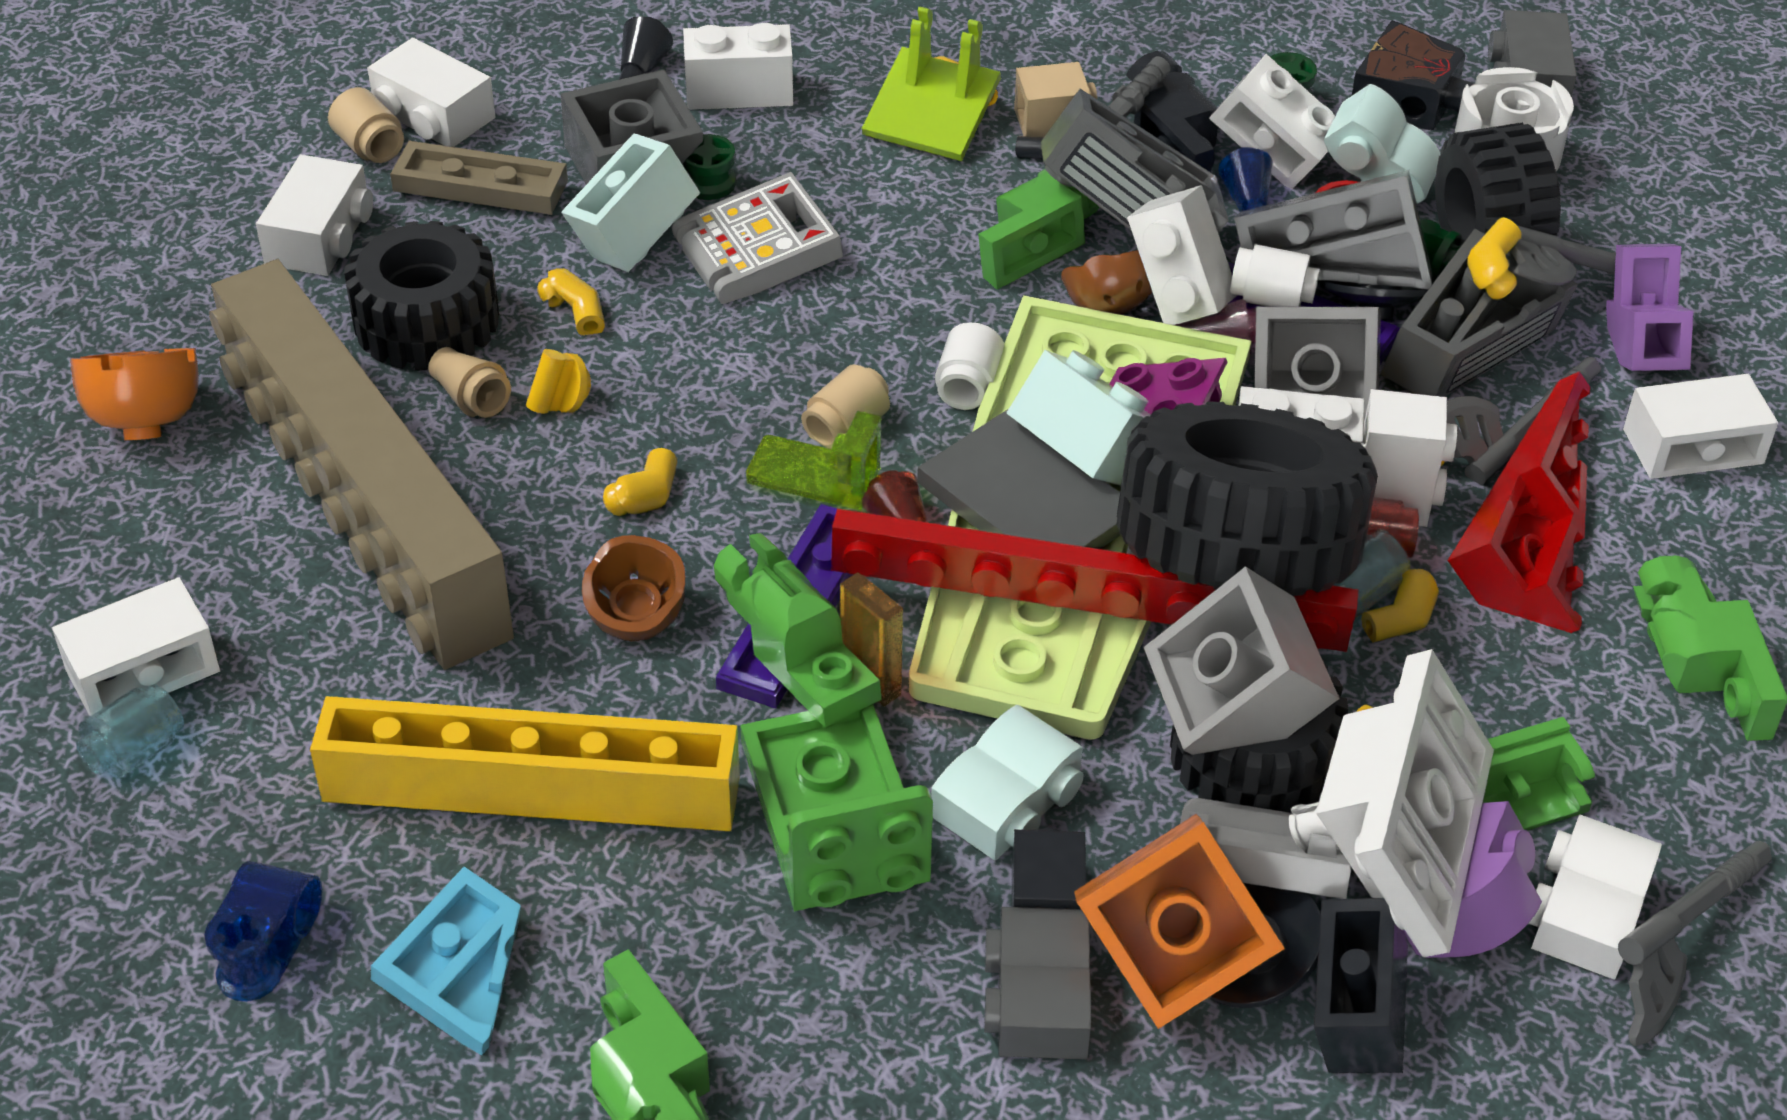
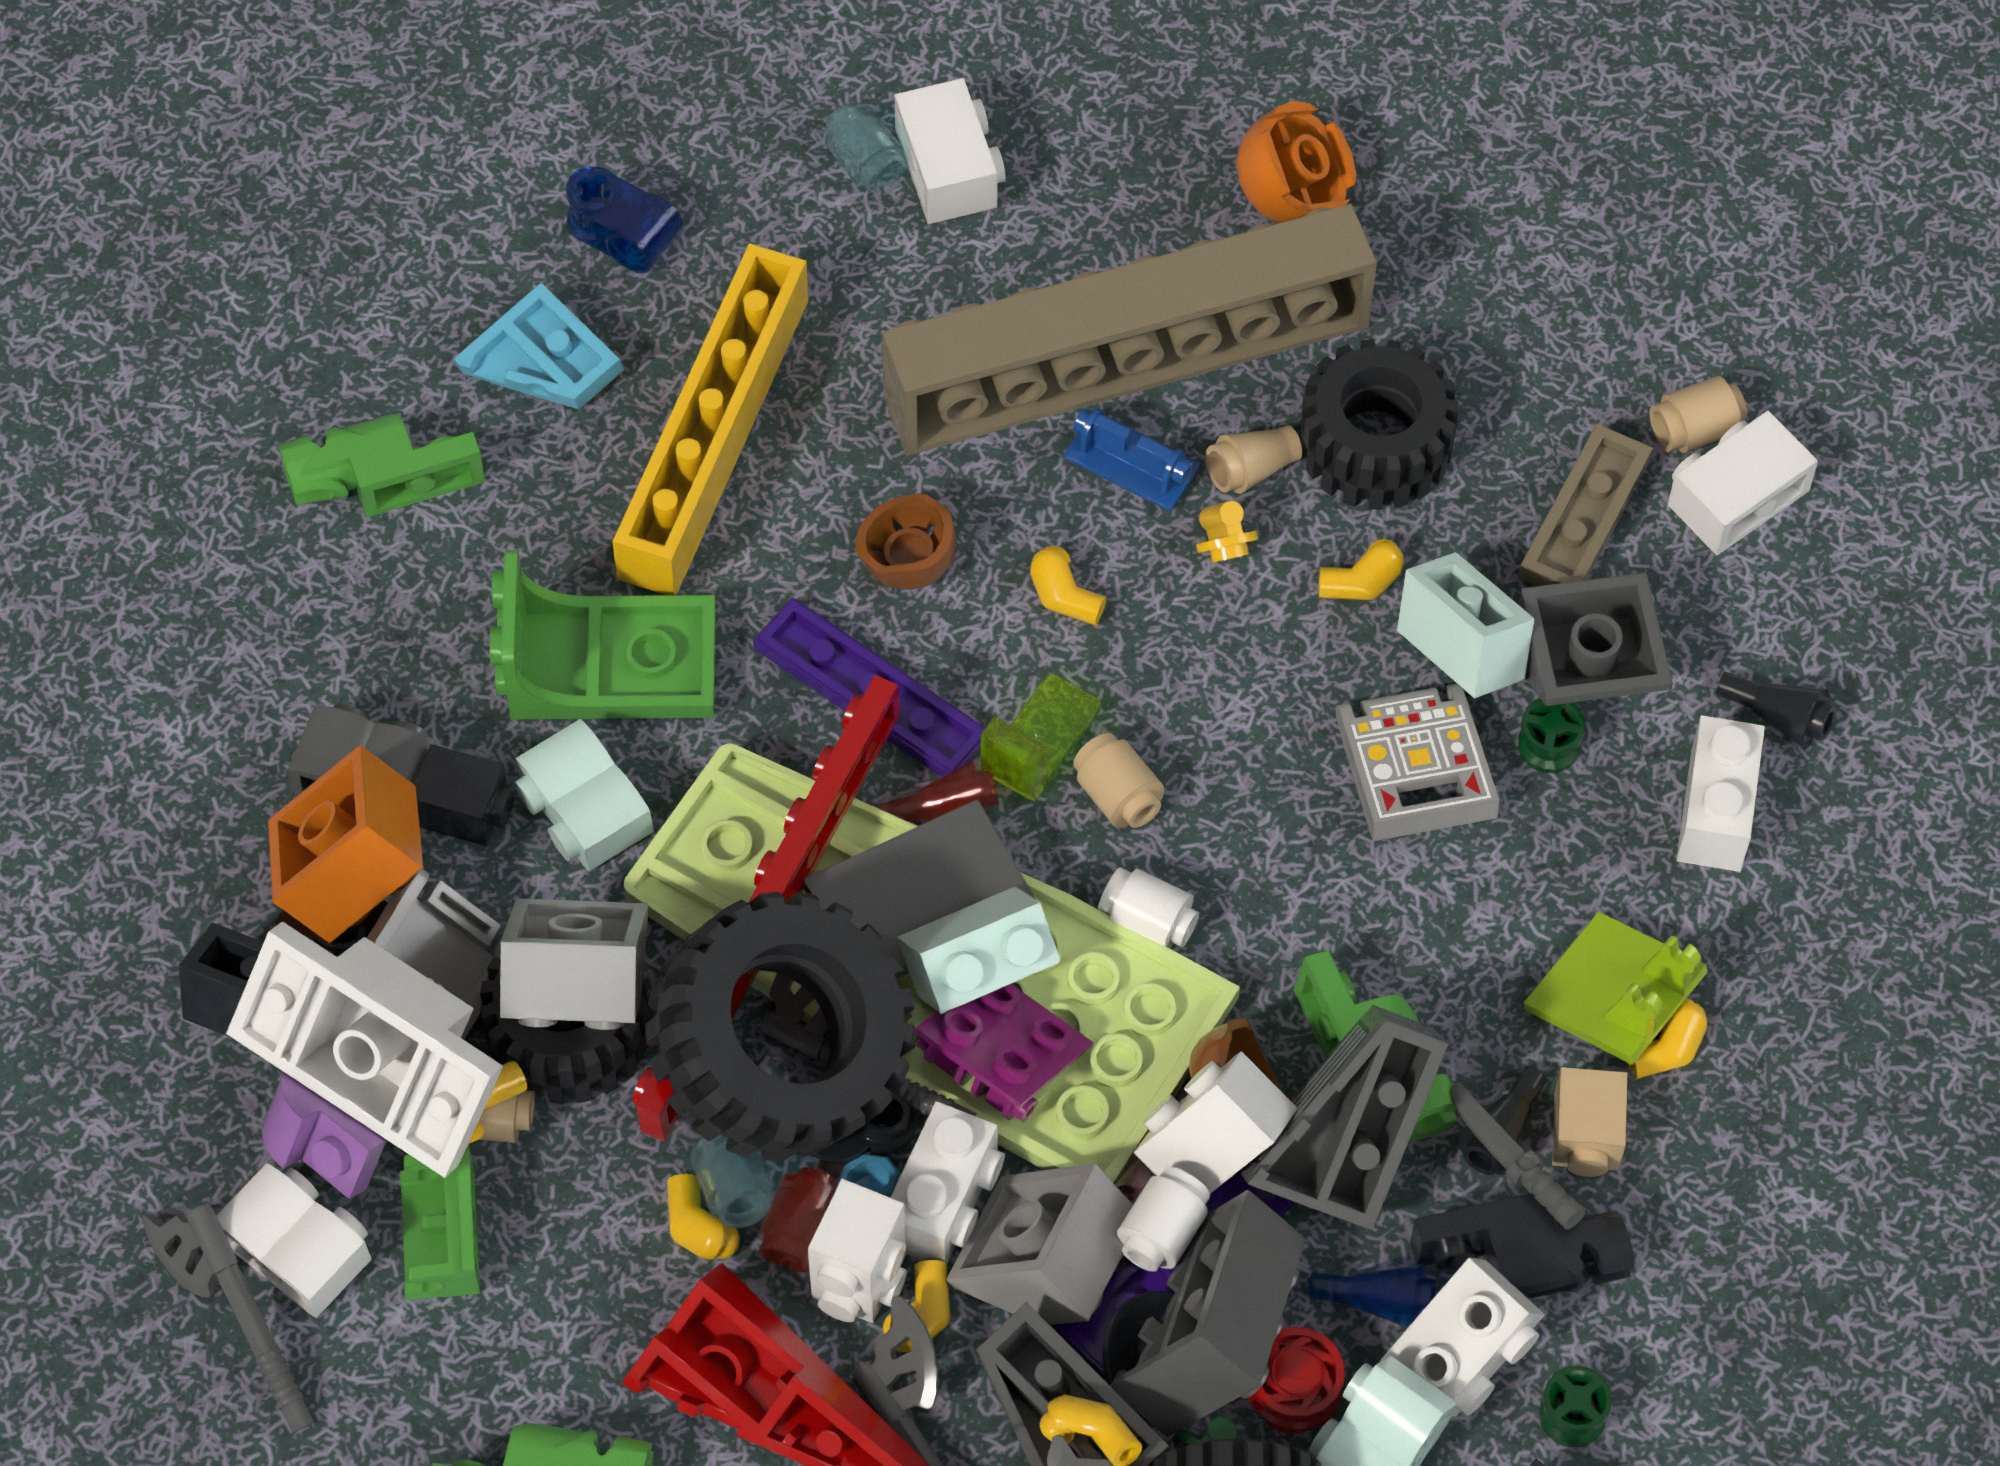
camera: 105 degrees right, 15 degrees up
(314, 214) = (1545, 349): white brick -> none
(491, 457) = (1130, 459): none -> blue hinge
(796, 632) = (790, 646): bright green plate -> none
(873, 632) = (759, 703): clear orange tile -> none

